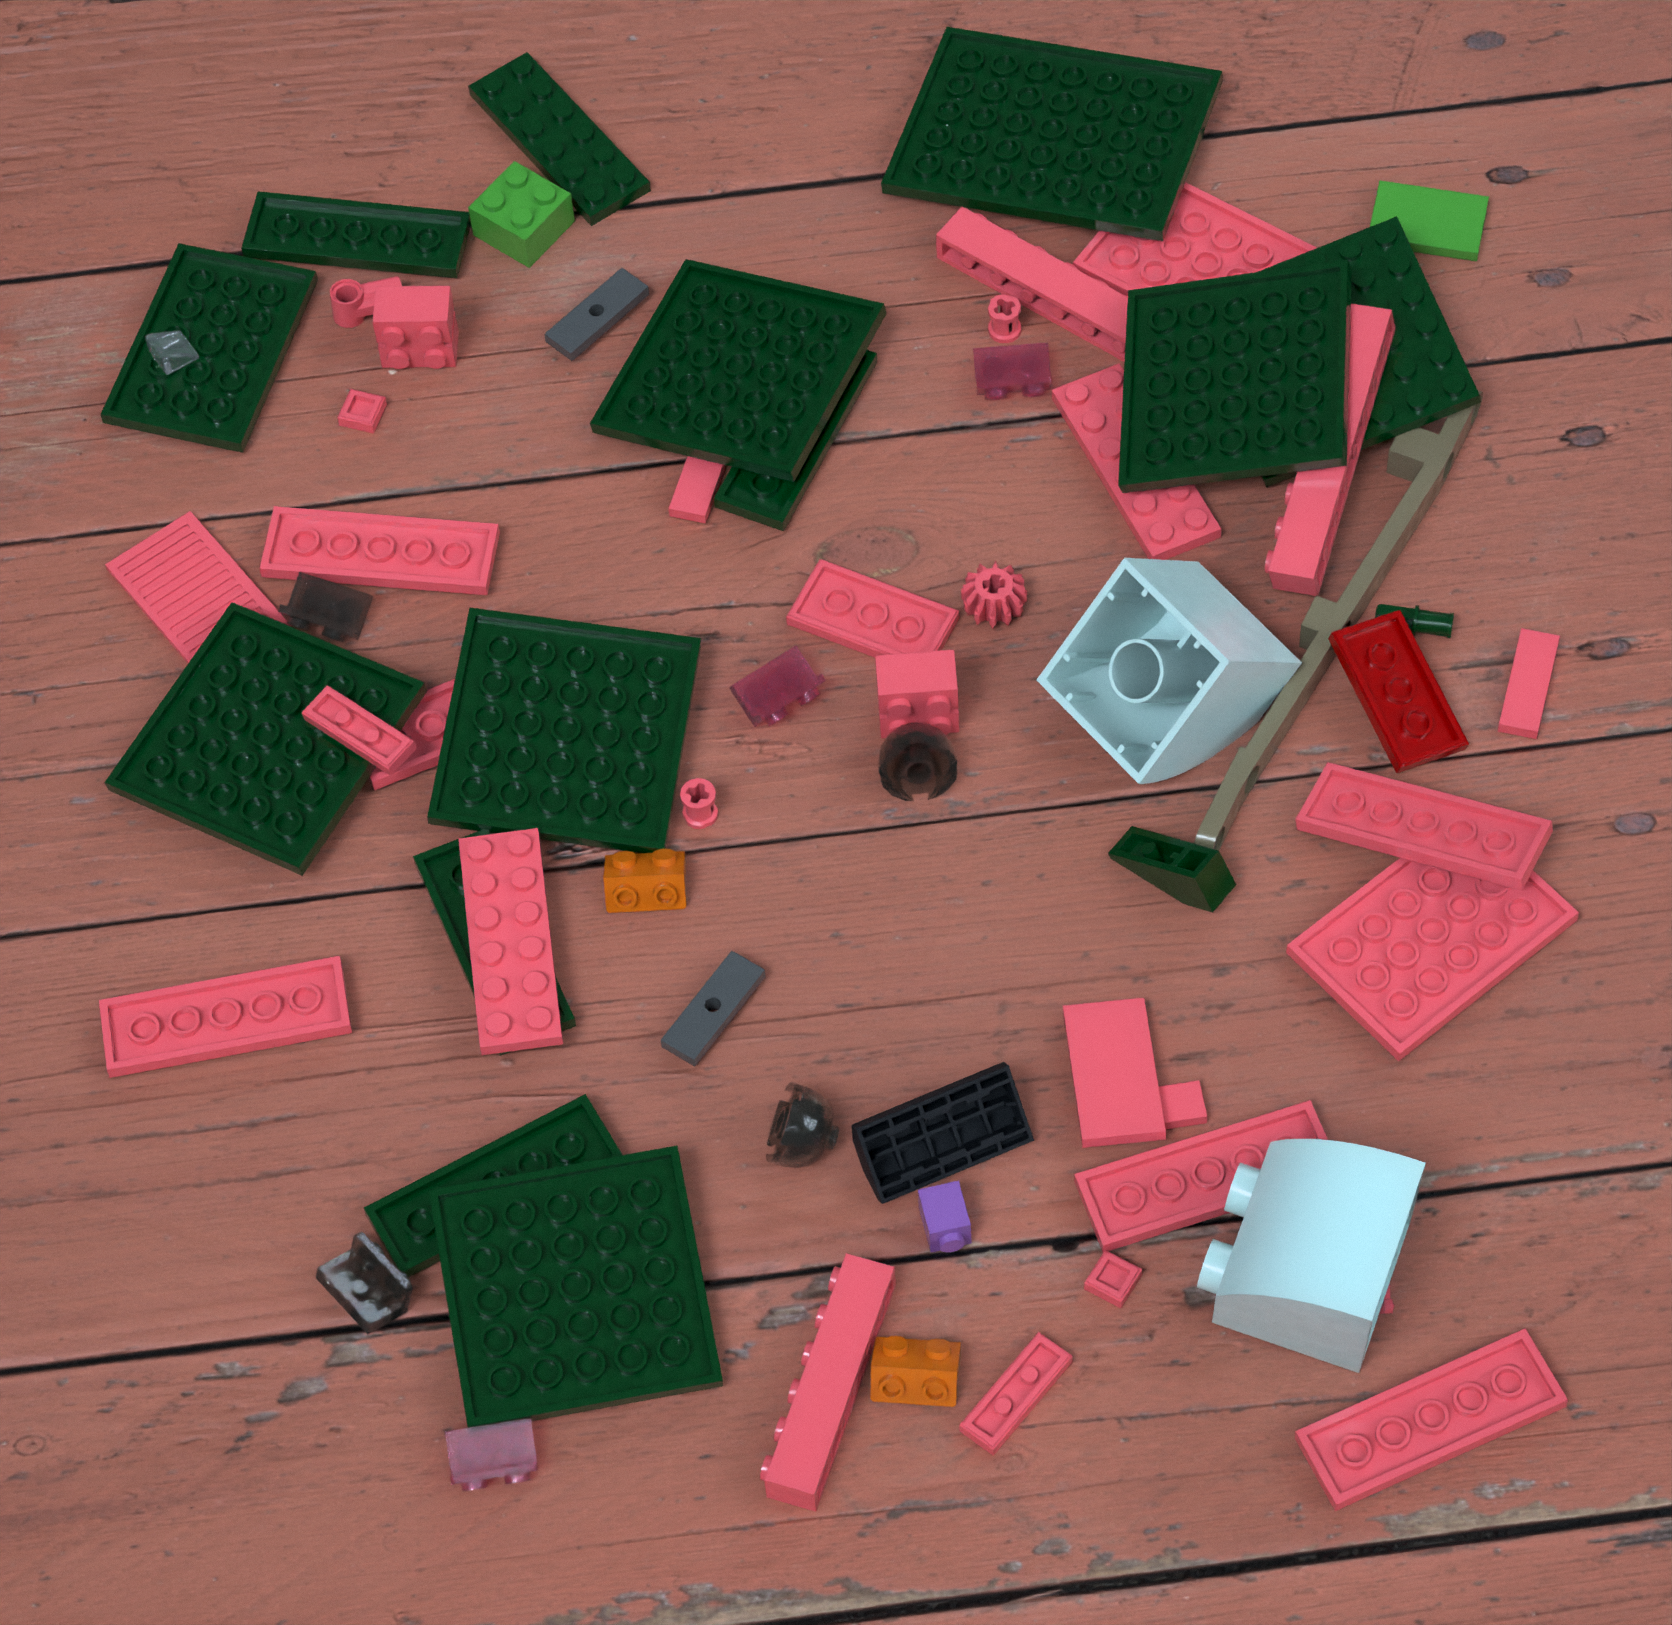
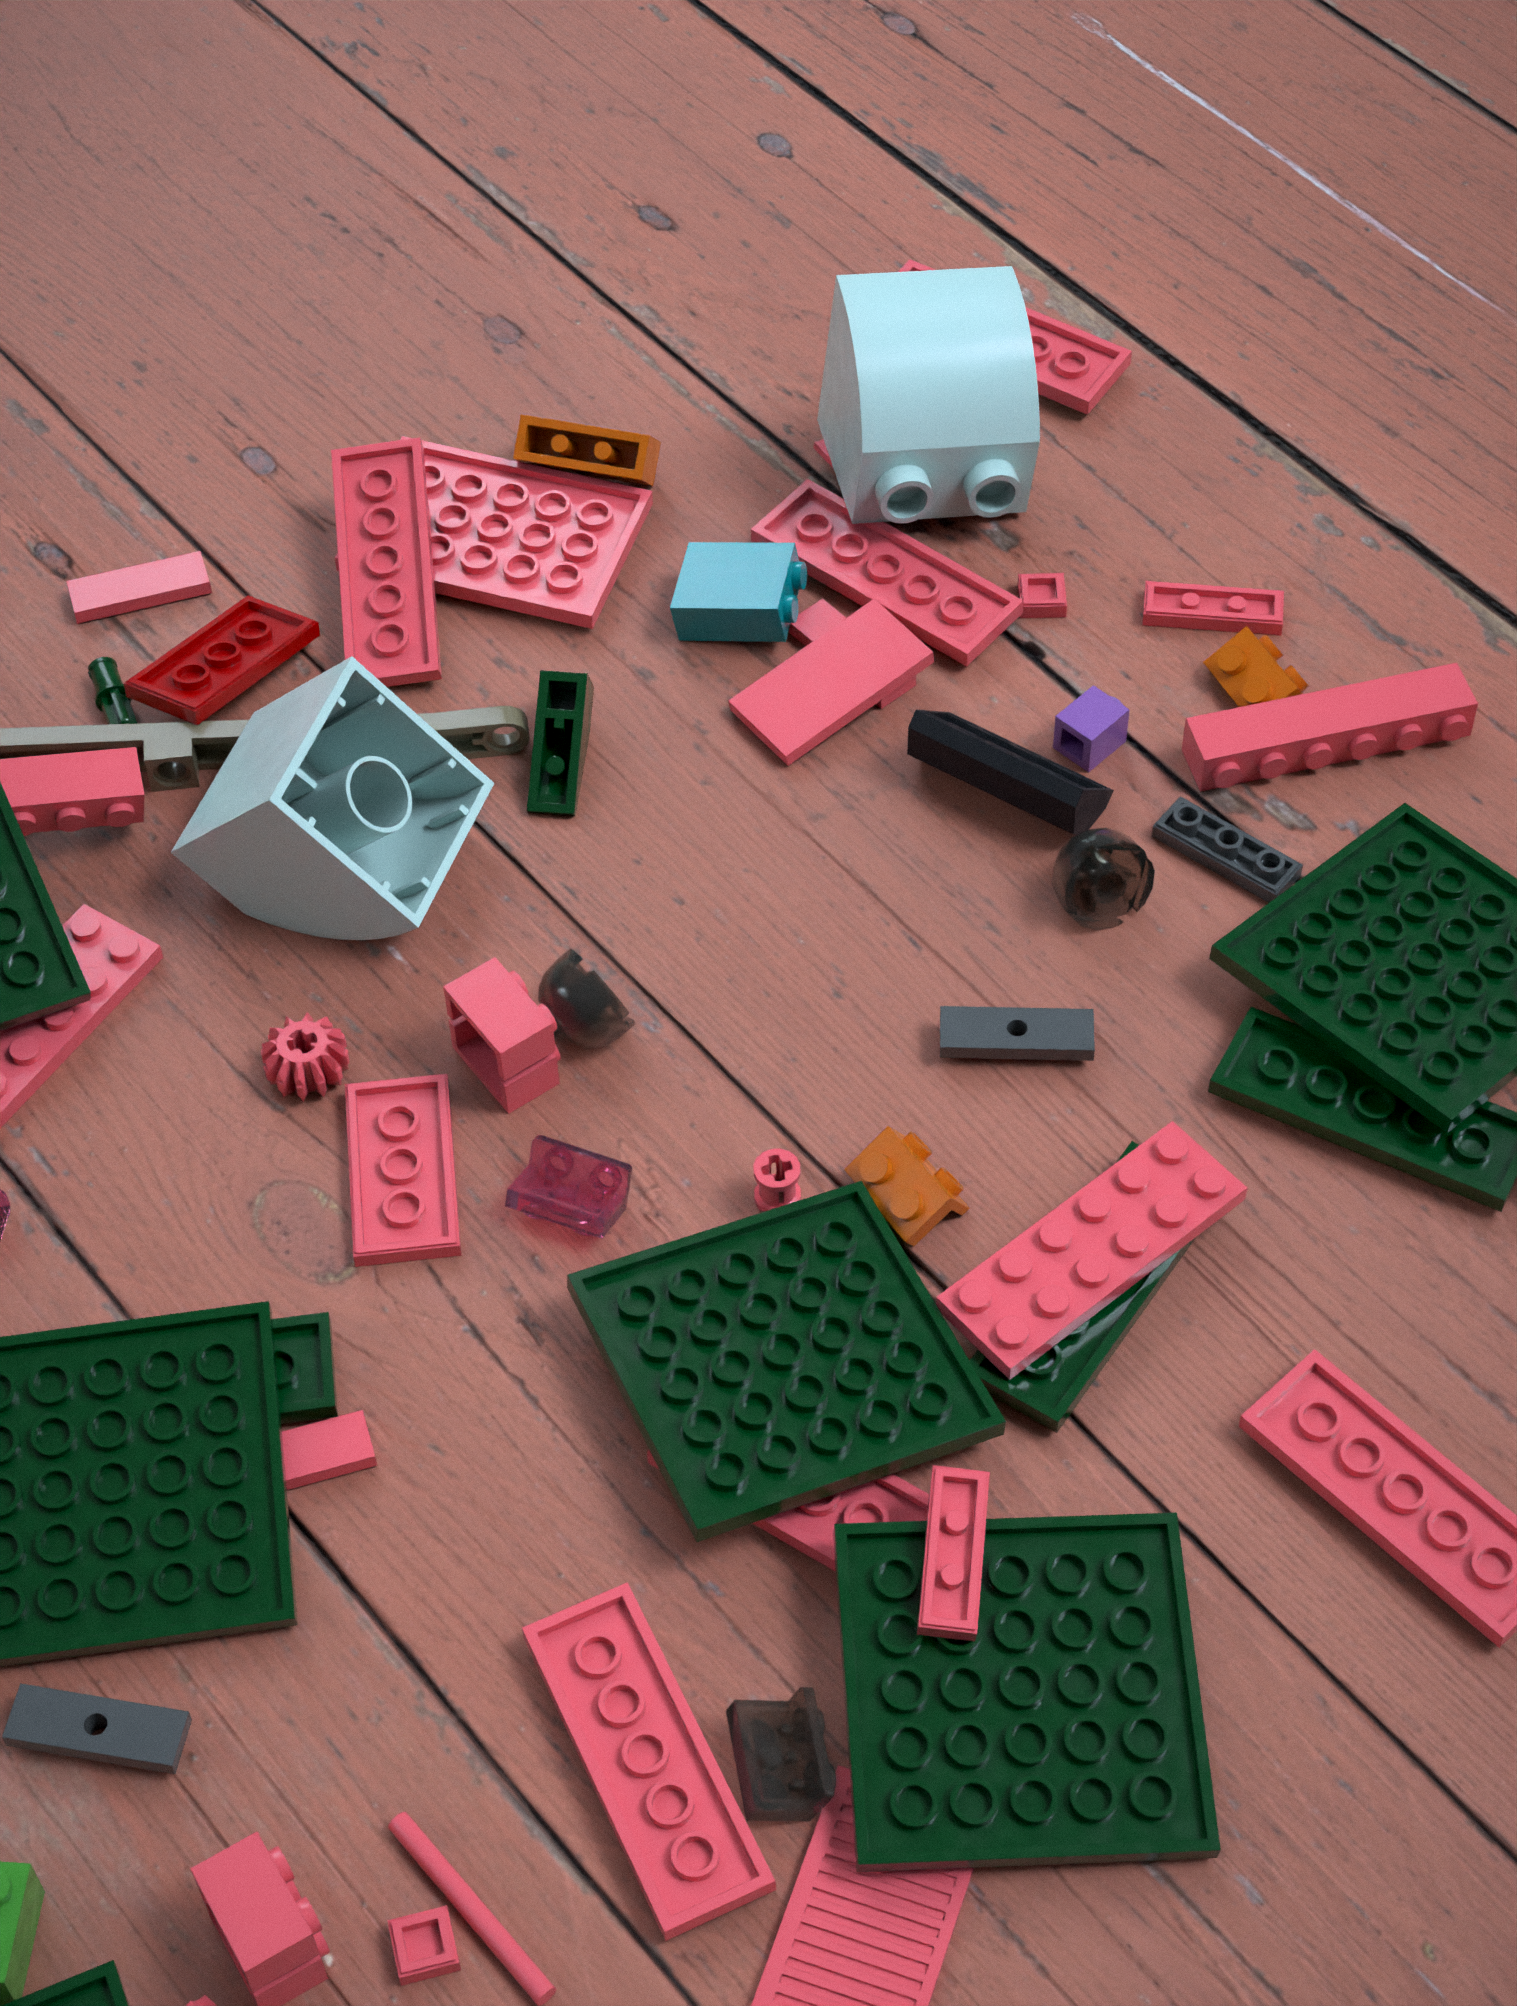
camera: 125 degrees left, 5 degrees down
(365, 439) = (472, 1909): none -> coral bar
(753, 1255) = (1226, 850): none -> dark grey tile
(1243, 1051) = (738, 591): none -> brick
(1470, 1025) = (587, 450): none -> orange brick

